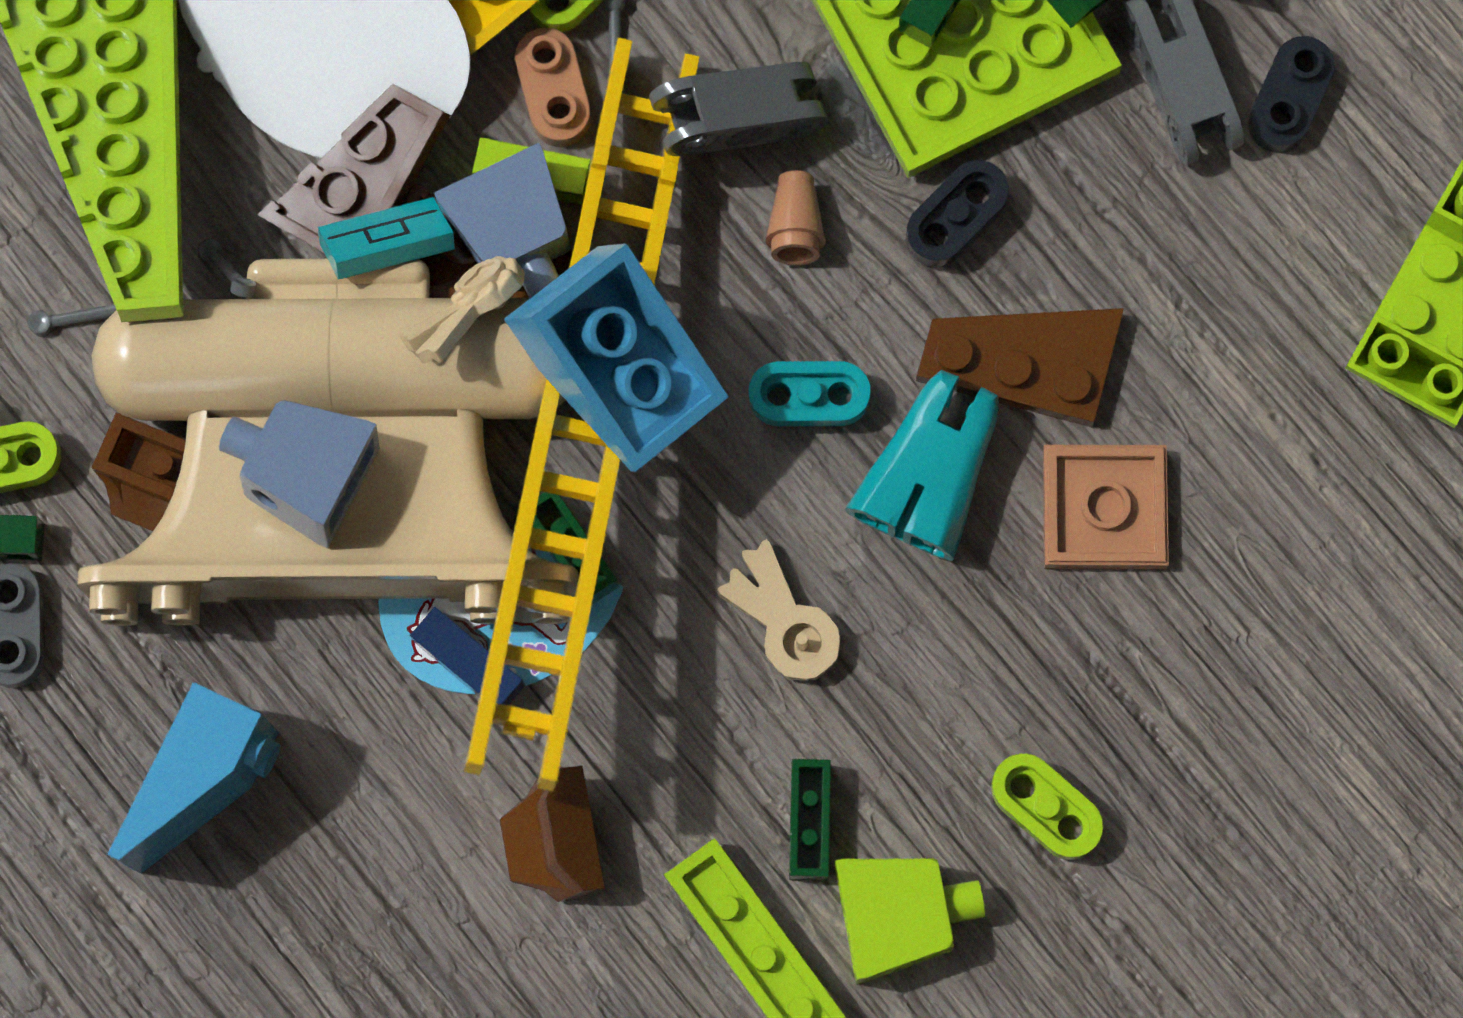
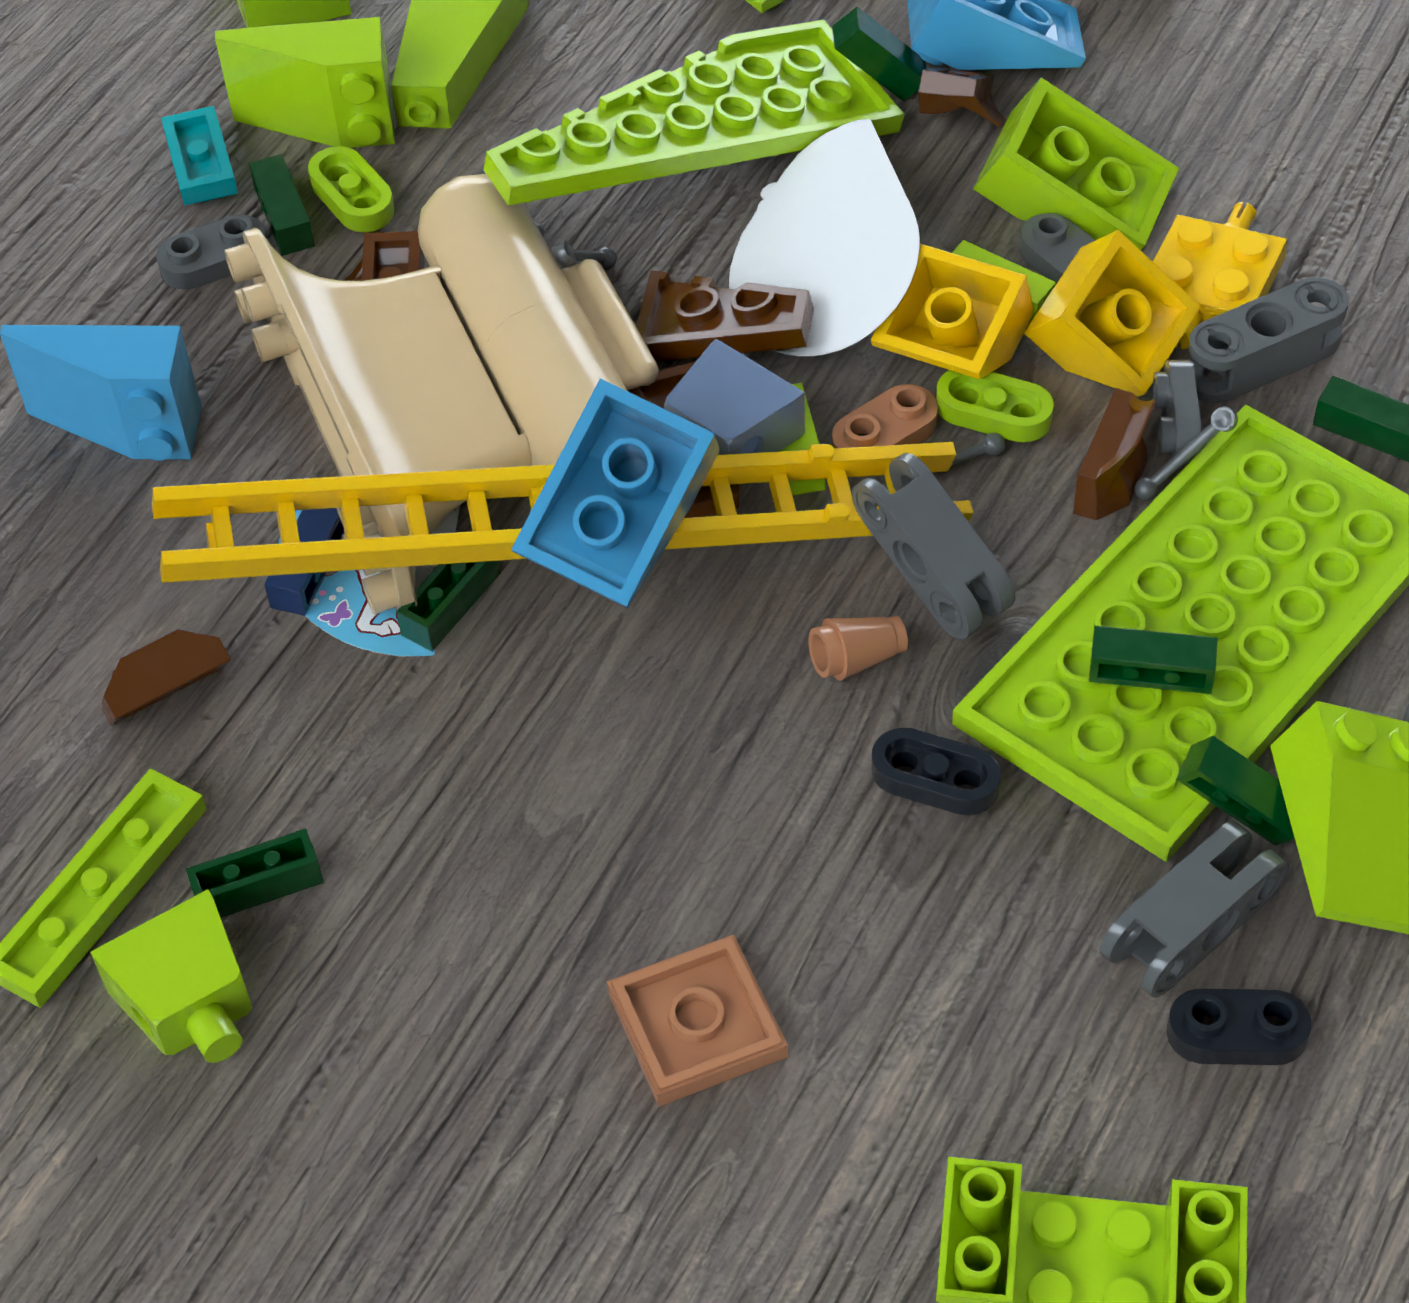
camera: 65 degrees right, 25 degrees down
(303, 464) = (410, 331): sand blue torso -> none
(386, 238) = (655, 329): teal tile -> none
(477, 292) = (626, 378): tan piece -> none
(798, 638) = (440, 800): tan piece -> none
(809, 390) = (691, 722): teal plate -> none
(928, 471) = (656, 836): teal piece -> none
(1029, 360) = (818, 894): reddish brown wing -> none
(1047, 806) = (345, 1081): lime plate -> none

